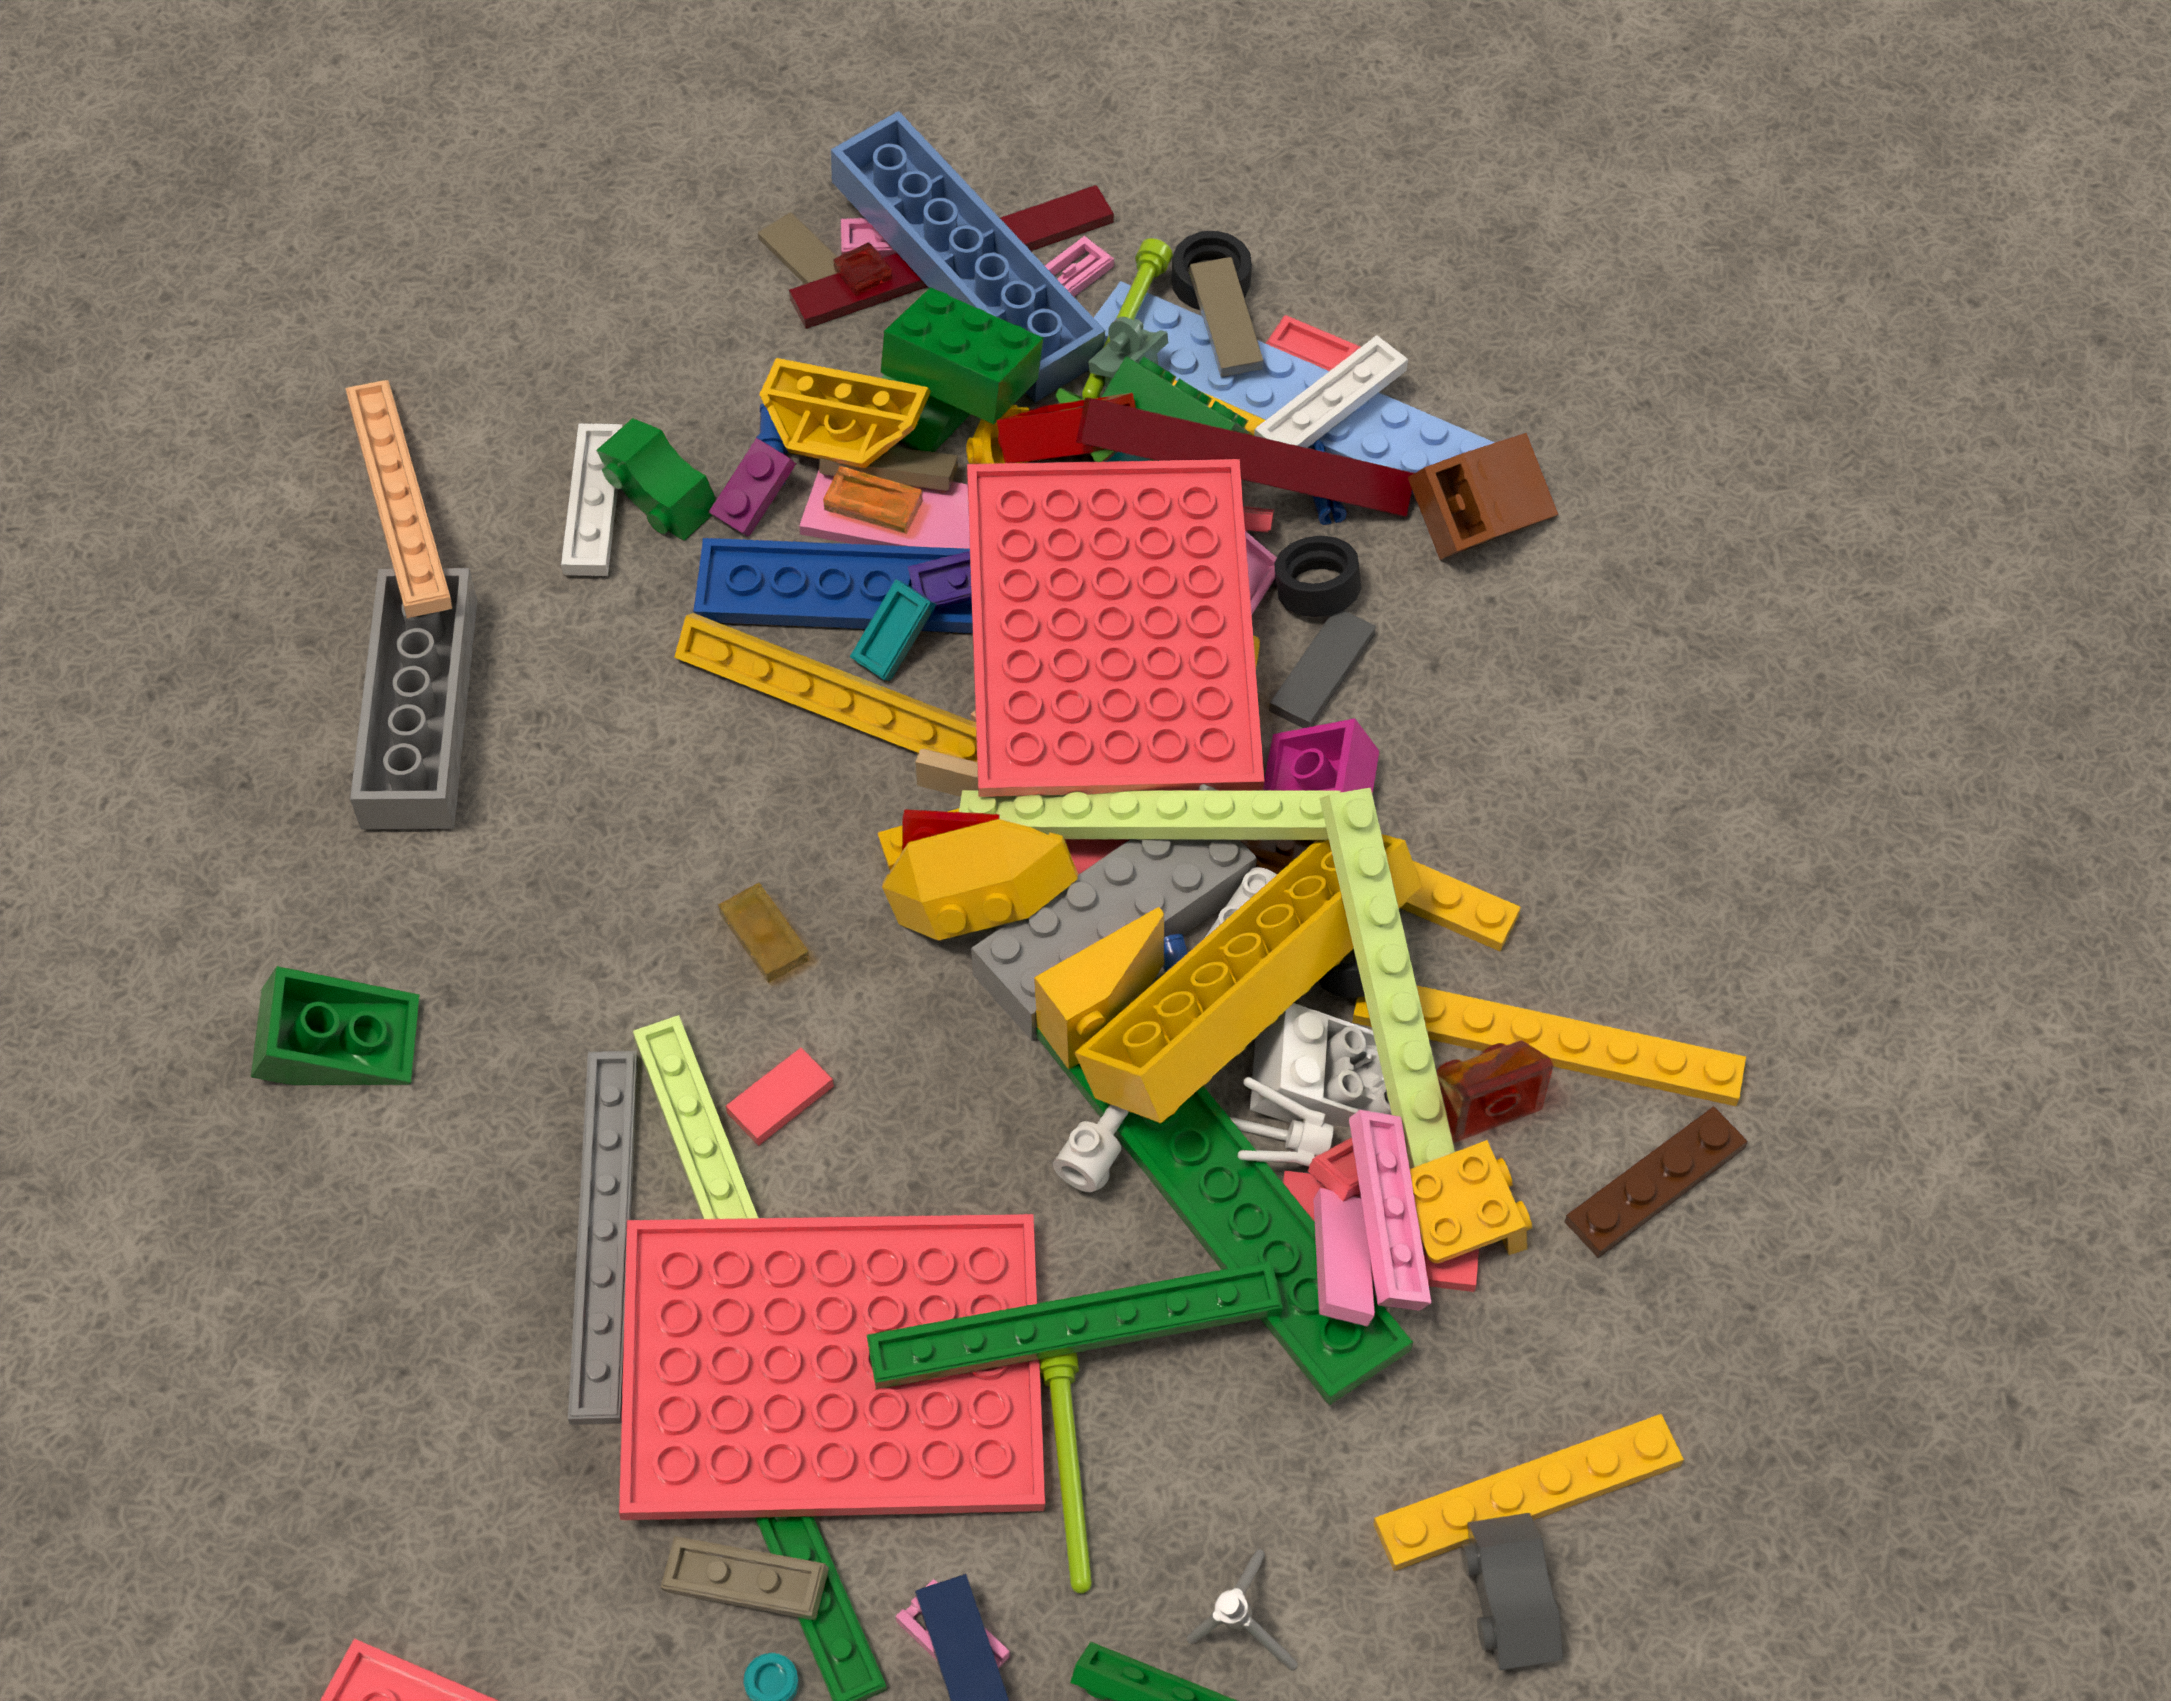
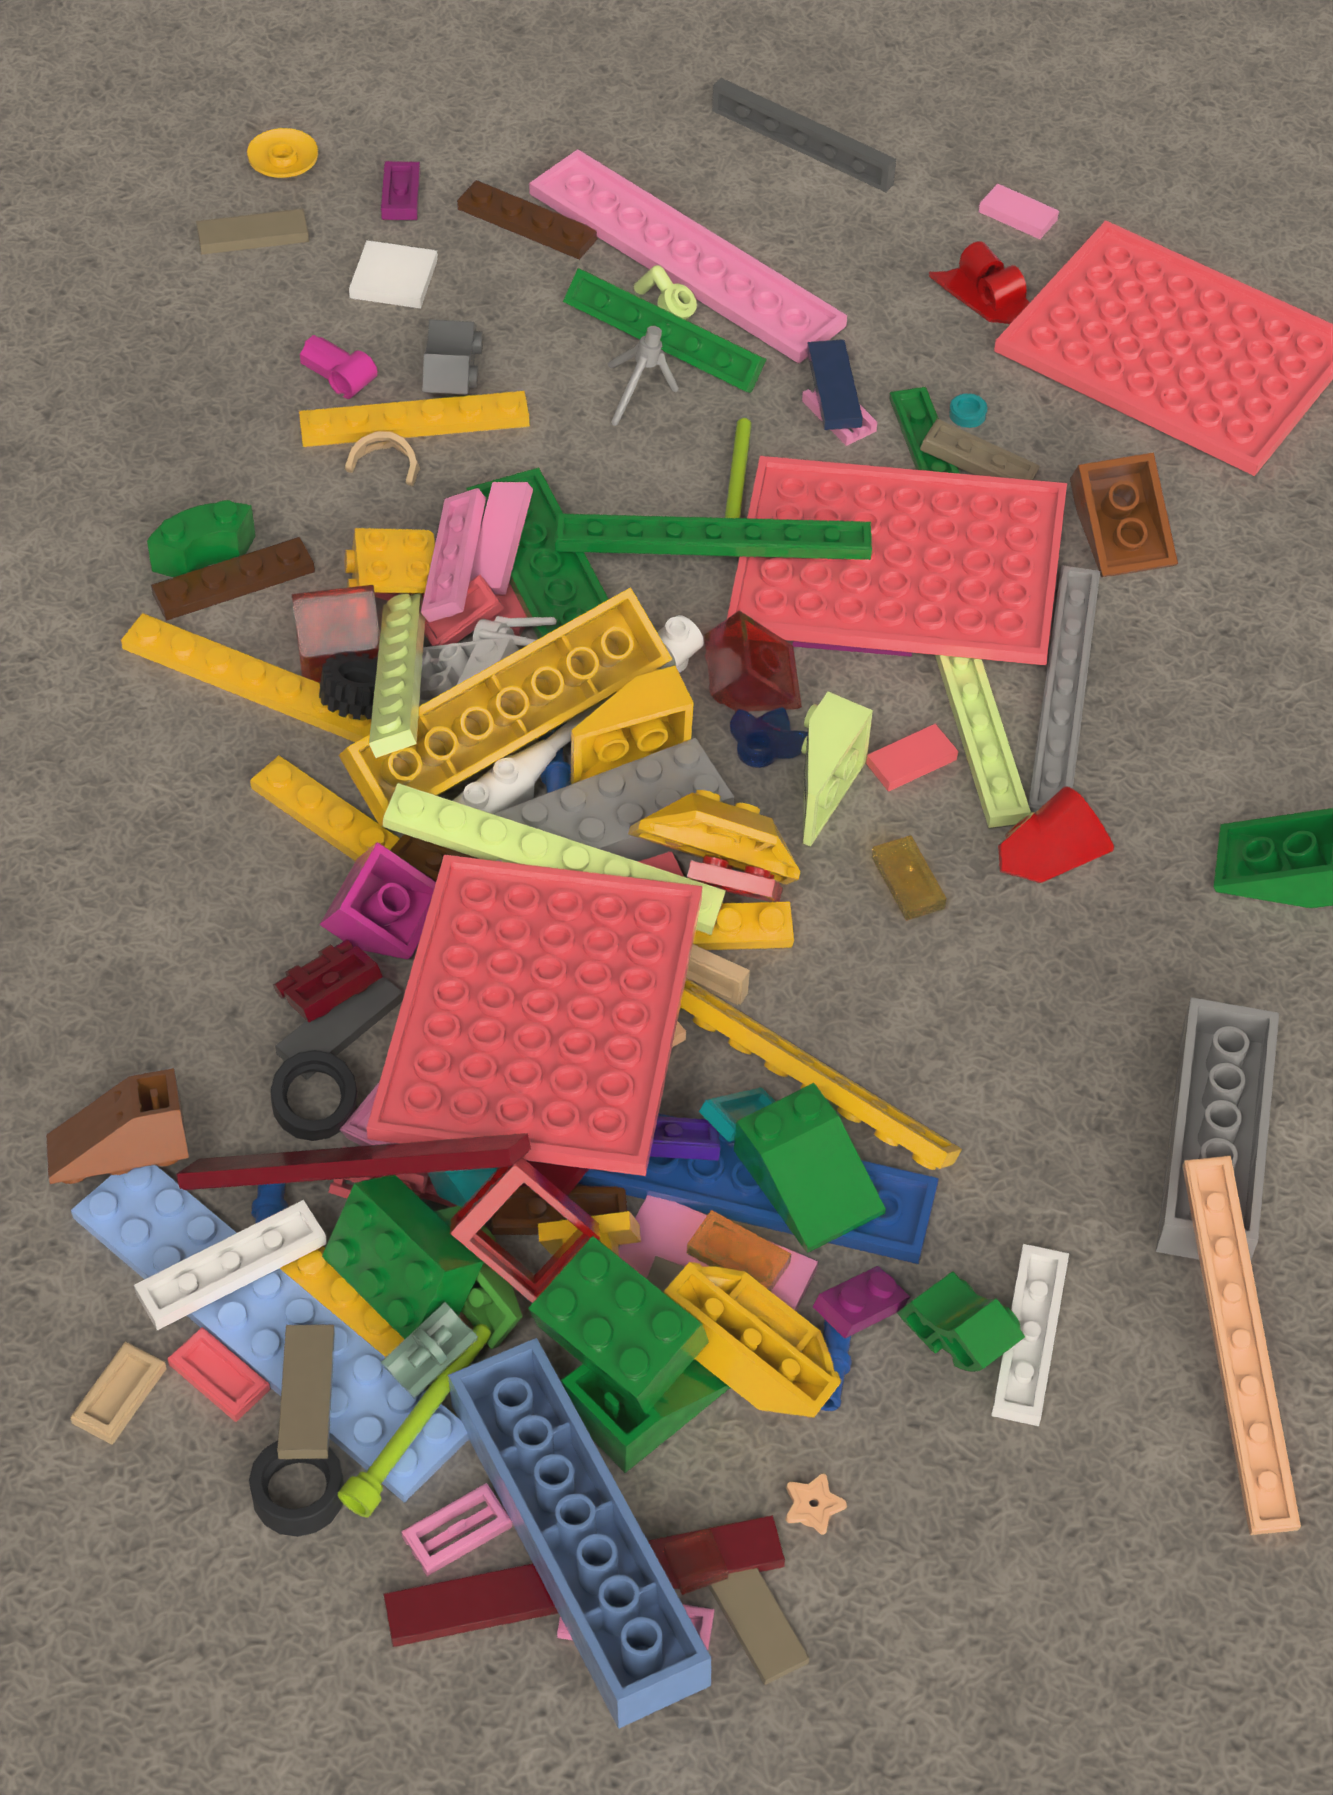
camera: 170 degrees left, 5 degrees down
(541, 1512) = (1124, 514): none -> dark orange slope
(618, 988) = (1054, 839): none -> red panel
(771, 348) = (813, 1516): none -> light nougat plate
(822, 578) = (807, 1167): none -> green slope
(867, 1037) = (833, 757): none -> yellowish green slope
(954, 1094) = (768, 733): none -> clear blue plate
(989, 1160) = (751, 666): none -> clear red slope
(1340, 676) = (328, 980): none -> dark red plate
(1394, 315) = (118, 1393): none -> tan tile
(1471, 1009) = (349, 684): none -> black tyre
(1540, 1436) = (390, 440): none -> tan helmet
(1650, 1545) = (344, 371): none -> dark pink piece
(1714, 1211) = (201, 537): none -> green brick

